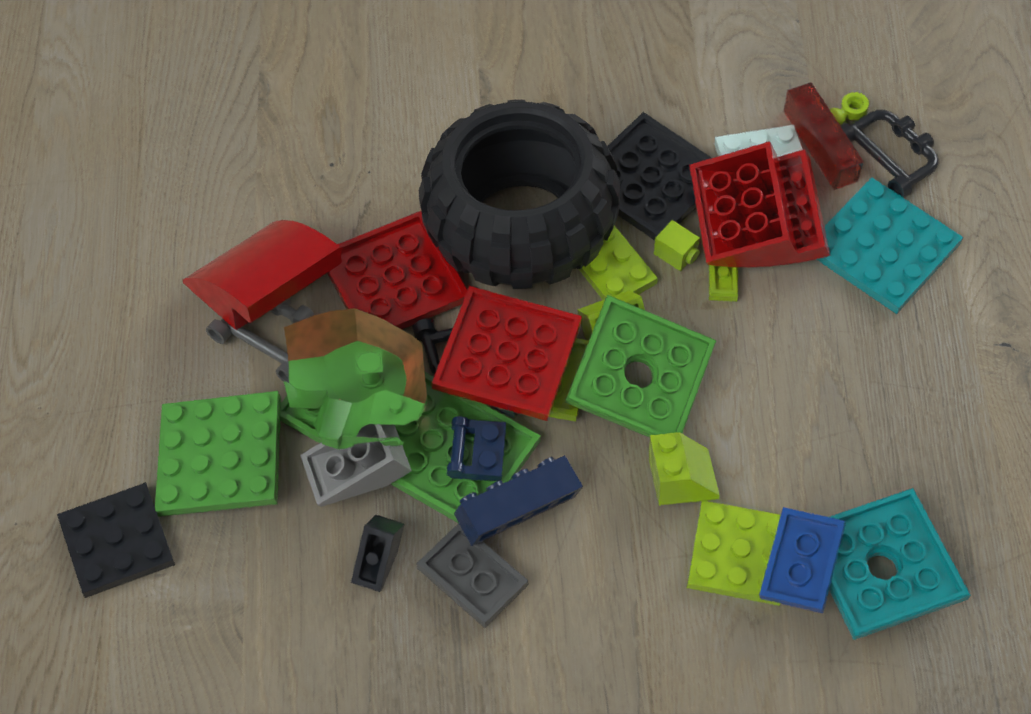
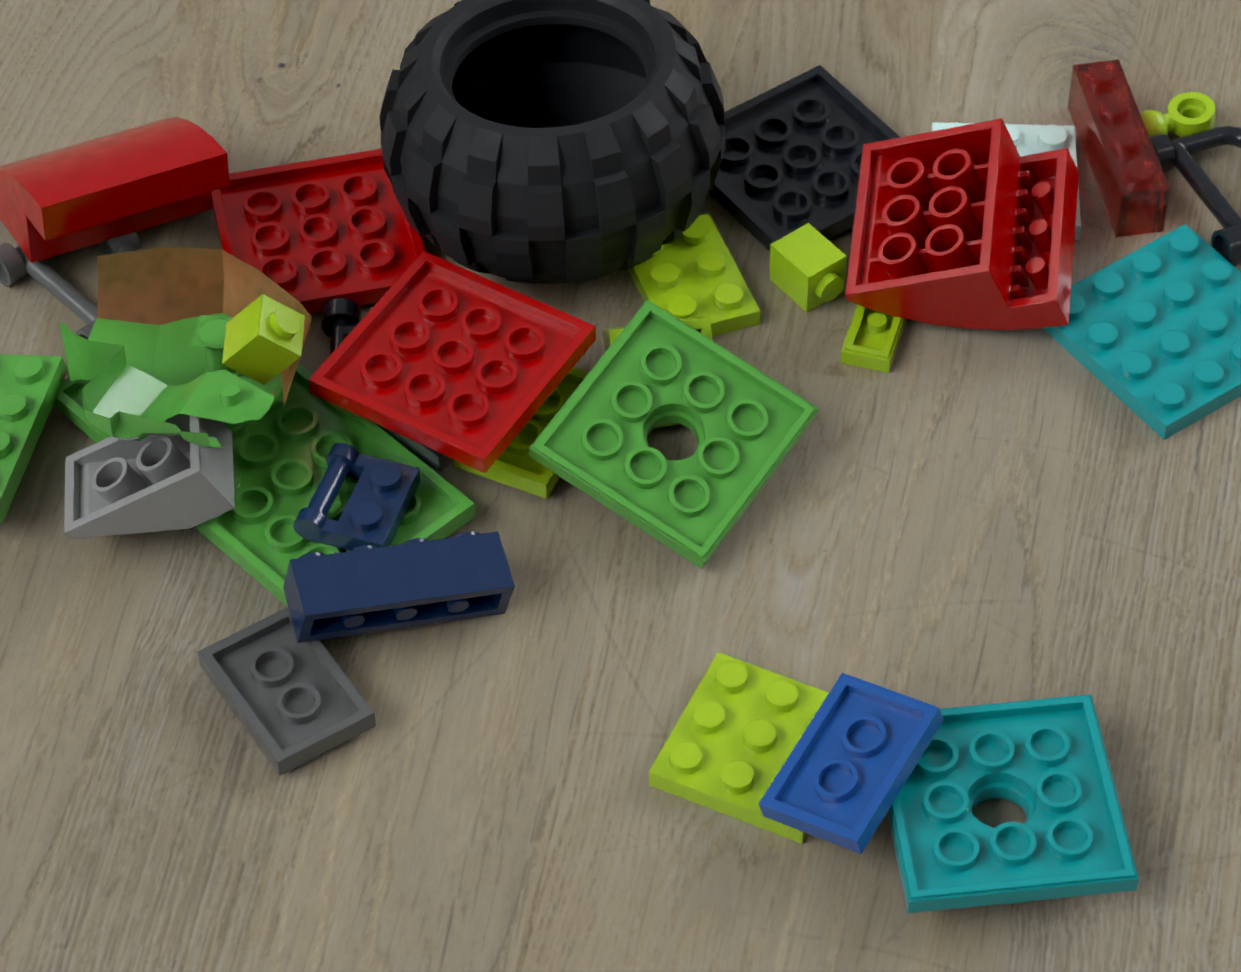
camera: 15 degrees right, 10 degrees down
(377, 552) = (139, 623): black slope -> none
(399, 364) = (263, 339): none -> lime brick
(681, 469) = (696, 596): lime slope -> none

